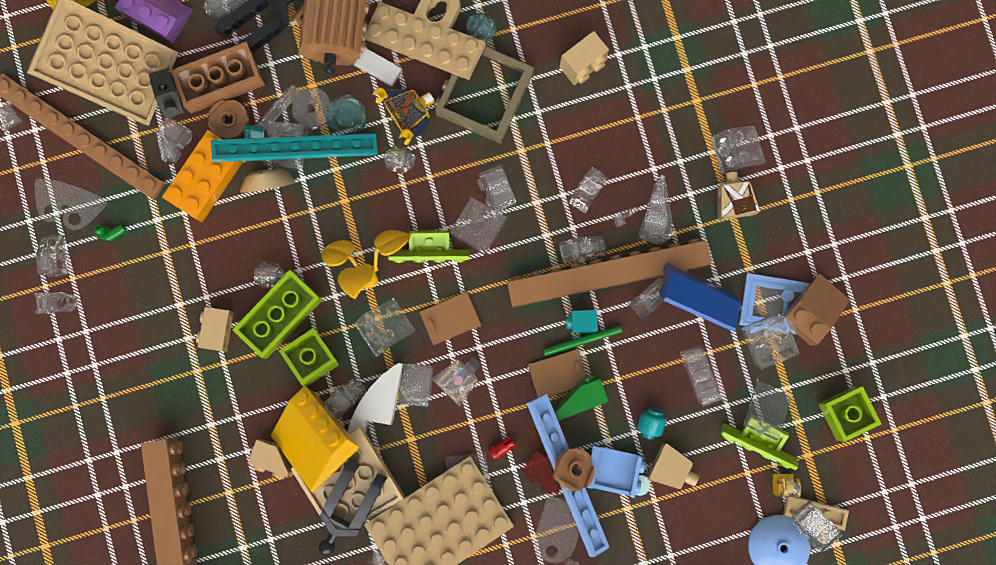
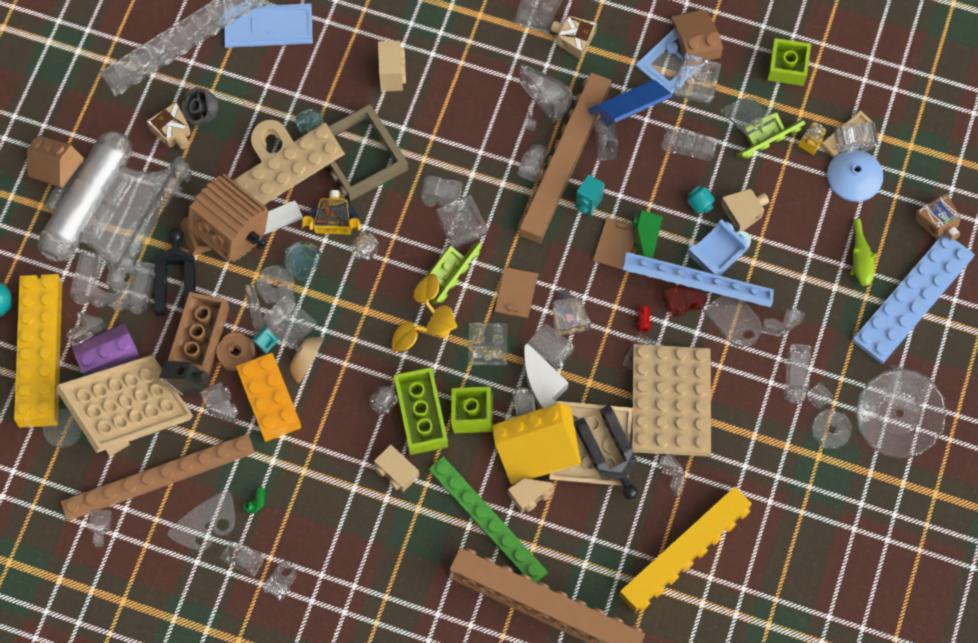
camera: 55 degrees left, 15 degrees down
(224, 439) = (487, 520): none -> bright green plate
(293, 147) = (299, 312): teal plate -> none
(563, 469) = (696, 269): medium nougat plate -> none
(582, 340) = (602, 210): green bar -> none
(588, 189) = (490, 130): clear slope -> none

